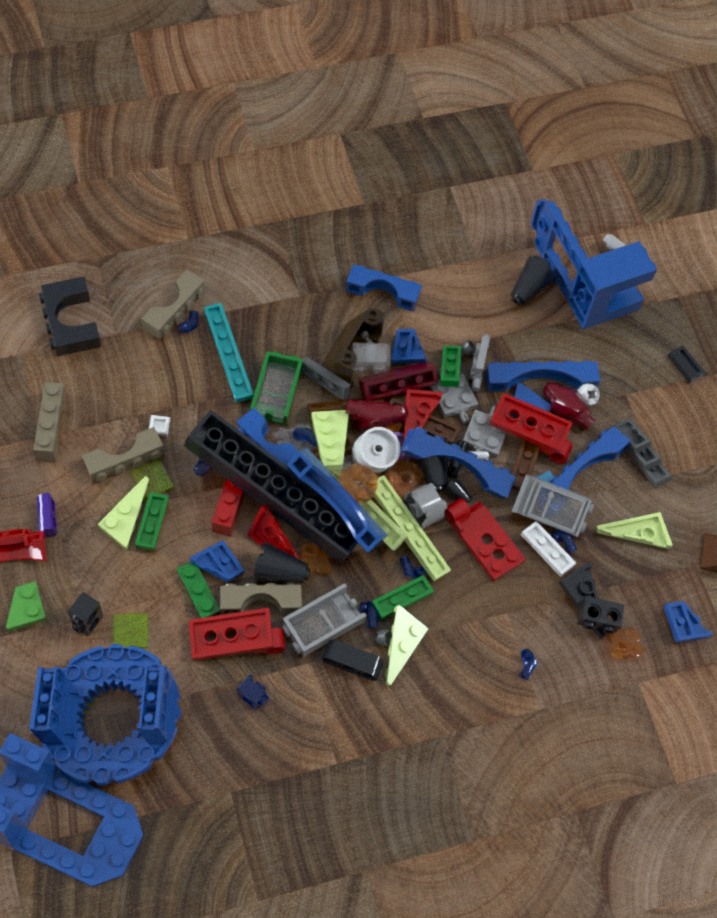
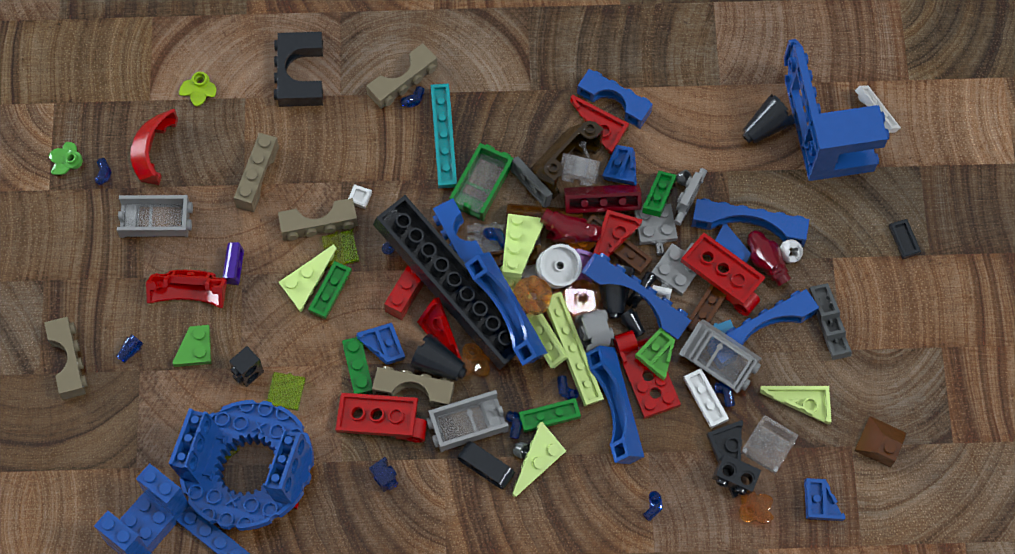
camera: 20 degrees right, 5 degrees up
(392, 312) = (613, 127): none -> red wing
(482, 602) = (625, 437): none -> blue arch
(491, 515) = (657, 353): none -> bright green wing
(622, 579) = (769, 444): none -> clear brick

